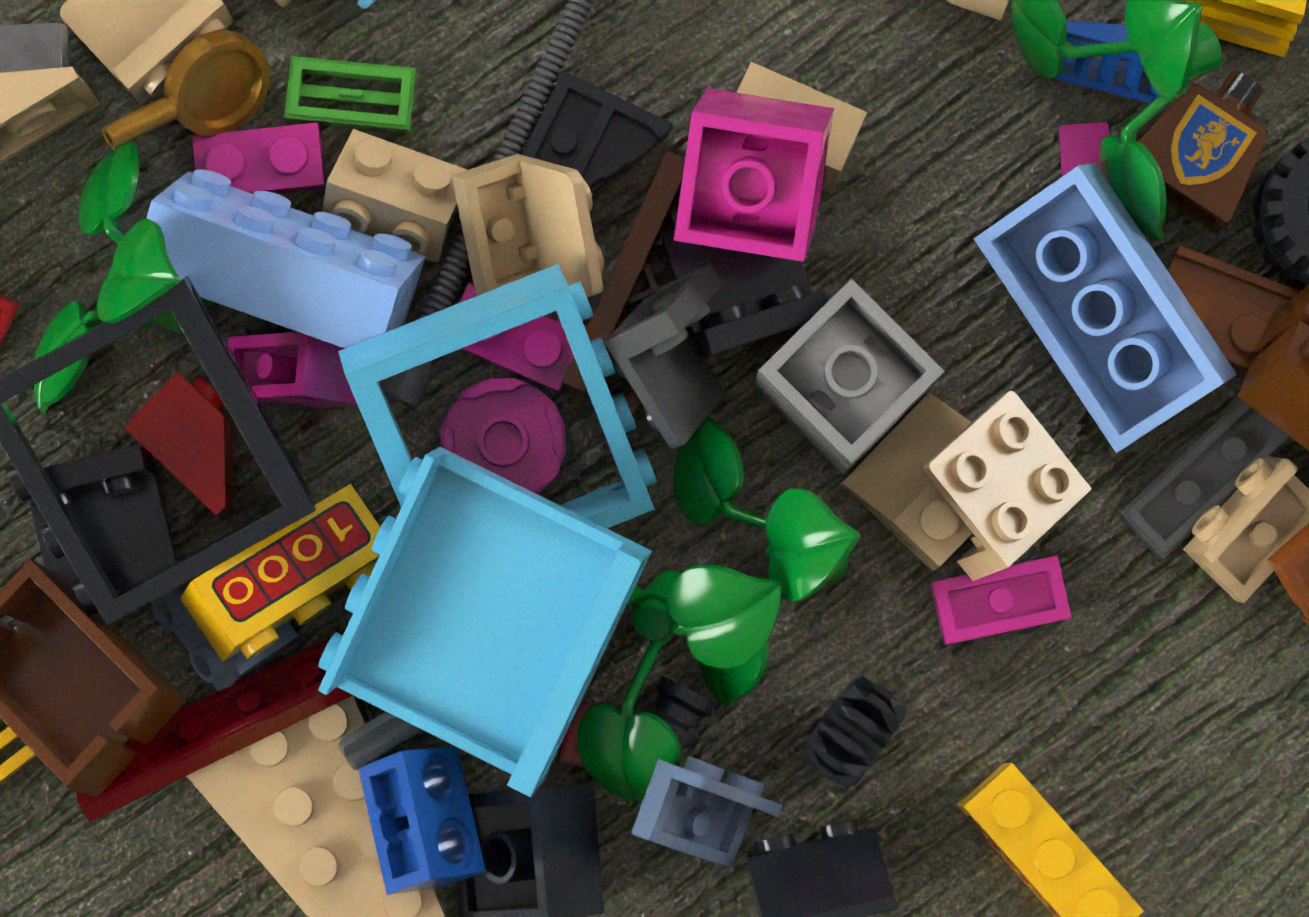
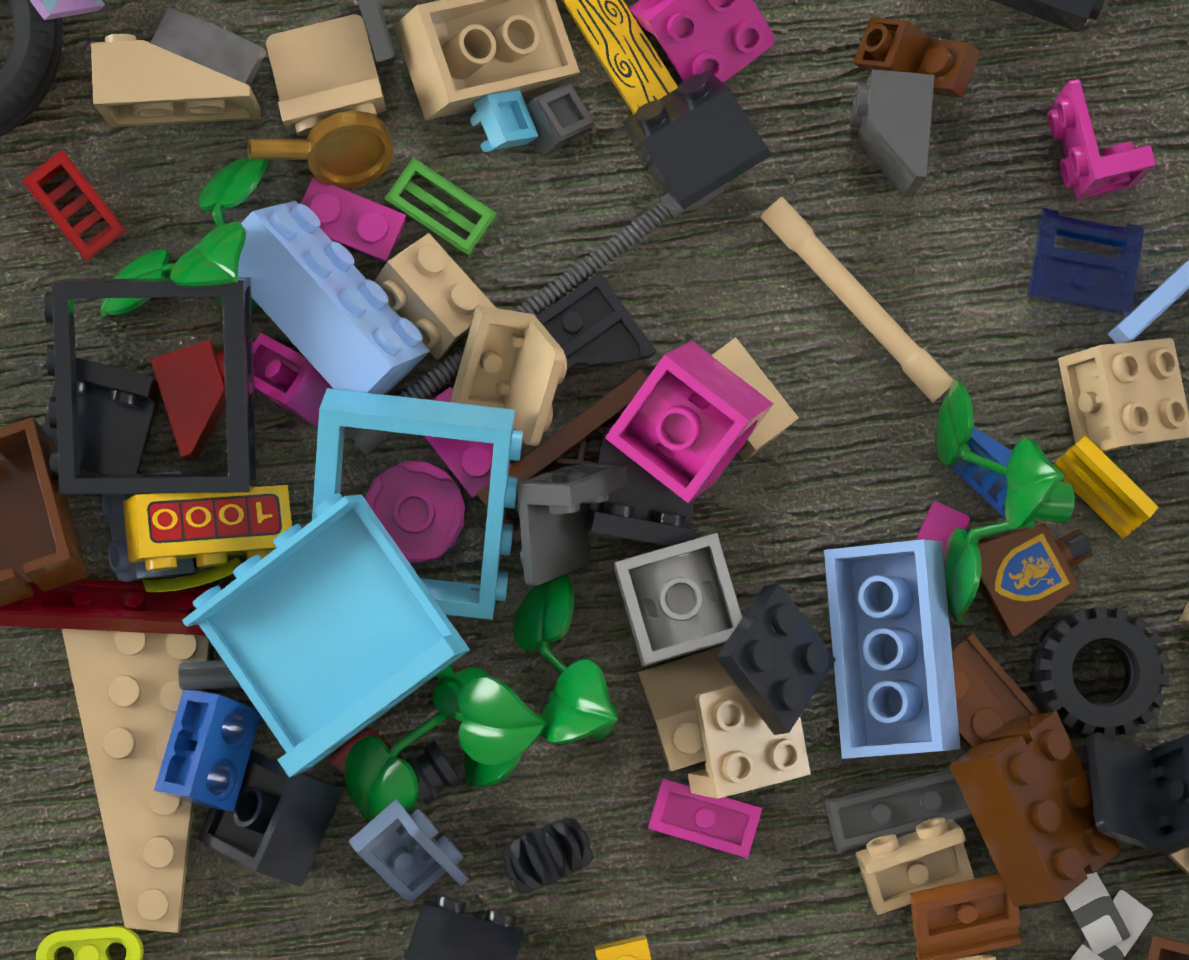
camera: 25 degrees right, 0 degrees up
(303, 644) = (192, 580): none -> neon yellow sticker
(989, 381) = (776, 659): none -> black plate

